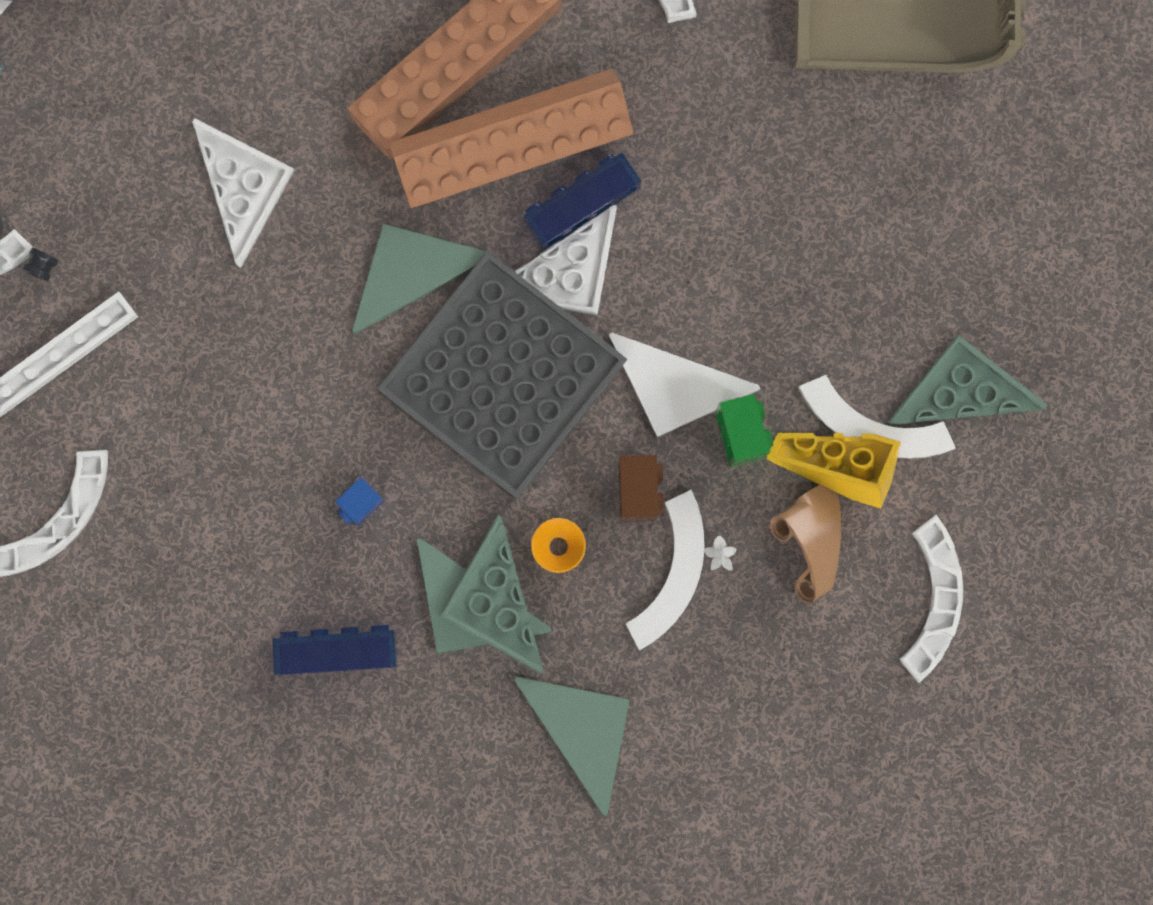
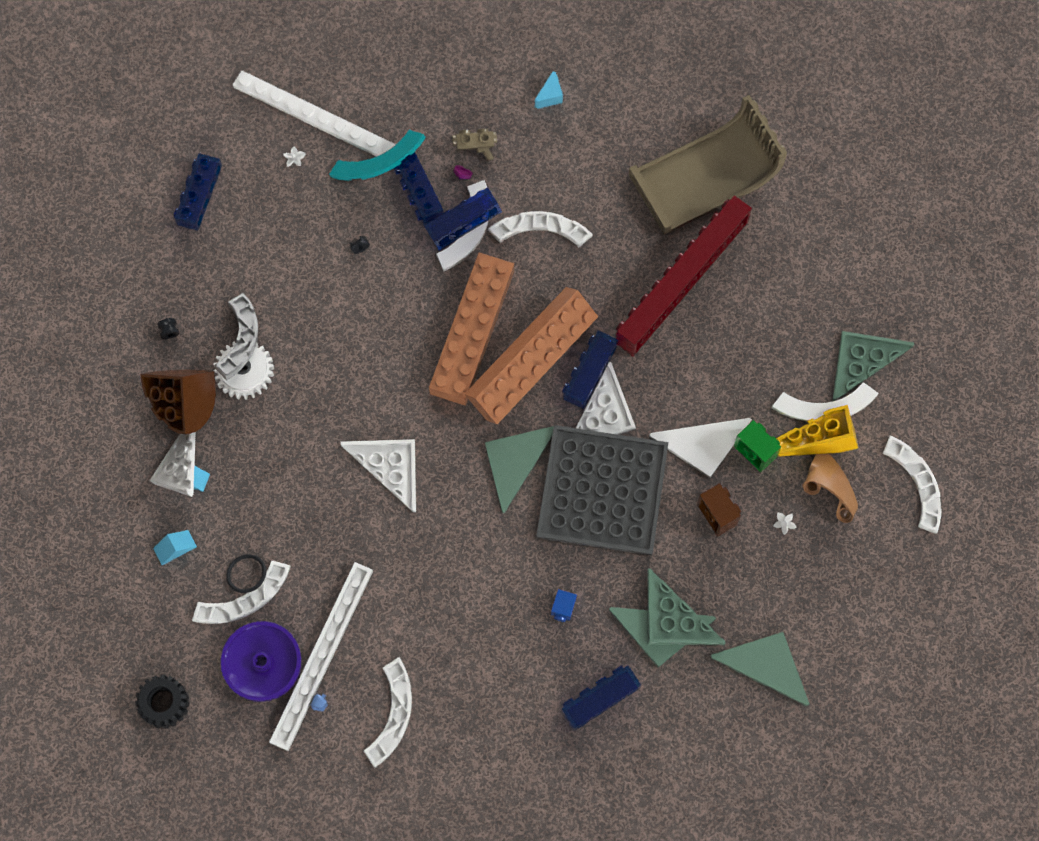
camera: 25 degrees left, 10 degrees down
(39, 264) = (299, 572): black wheel -> none
(555, 529) = (694, 557): light orange piece -> none
(683, 574) = (770, 545): white tile -> none
(783, 138) = (683, 275): none -> dark red brick

